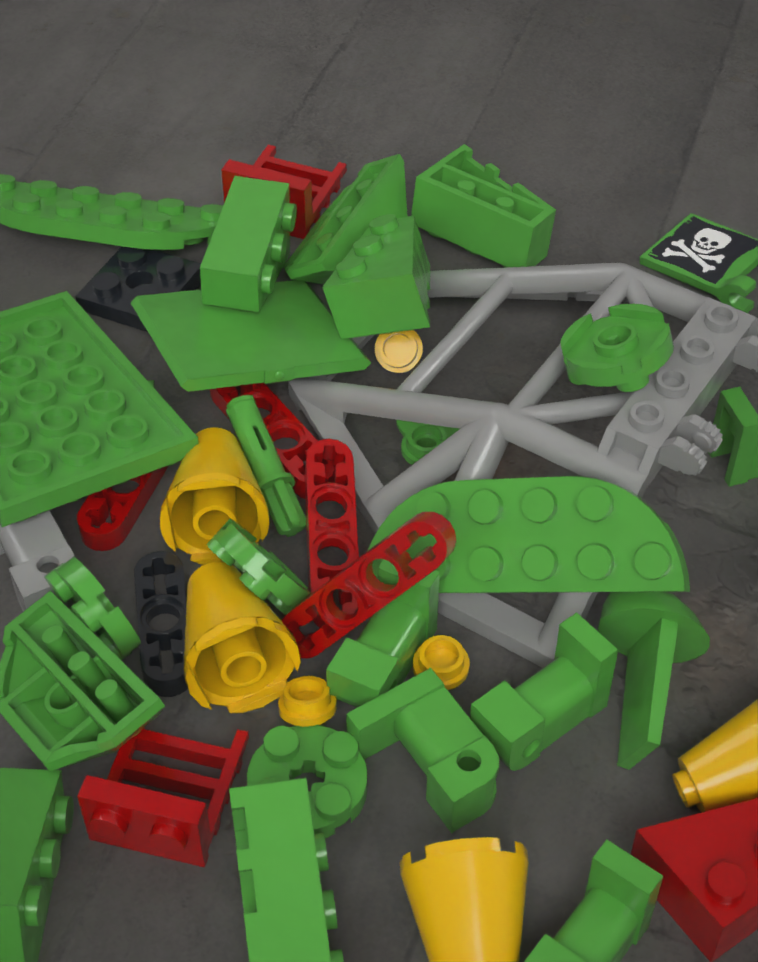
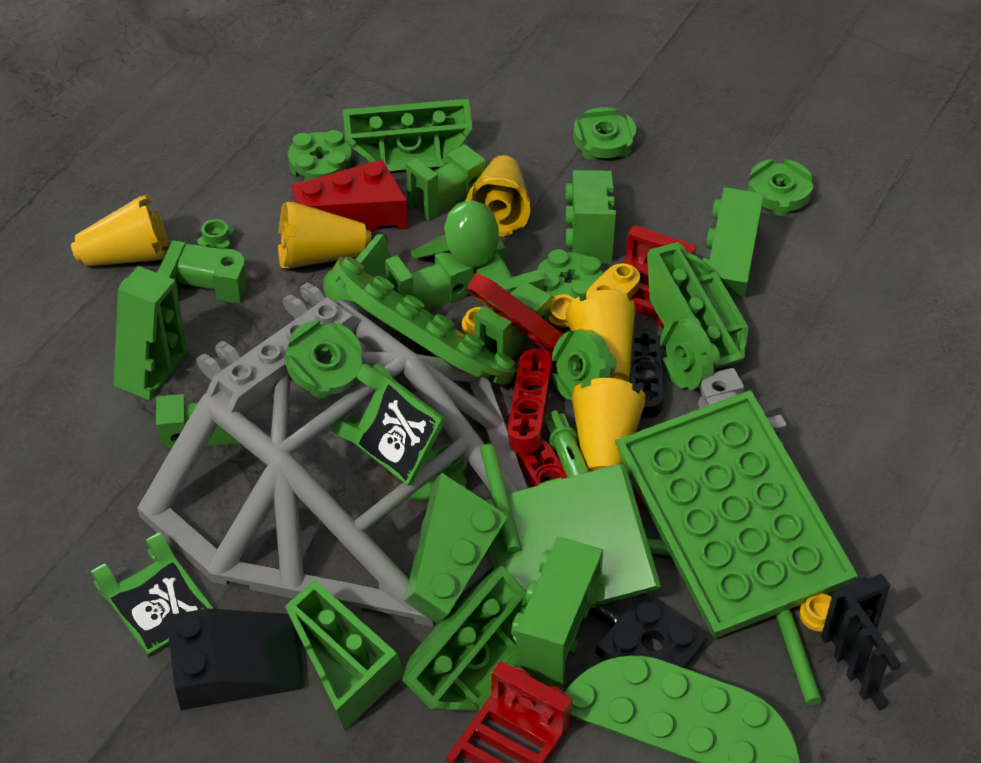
camera: 170 degrees left, 0 degrees up
(231, 738) = (619, 278): none -> yellow plate
(342, 350) = (500, 497): none -> bright green bar
(505, 745) = (469, 235): none -> bright green piece
(524, 341) = (395, 426): none -> flag
(609, 201) = (231, 656): none -> black slope

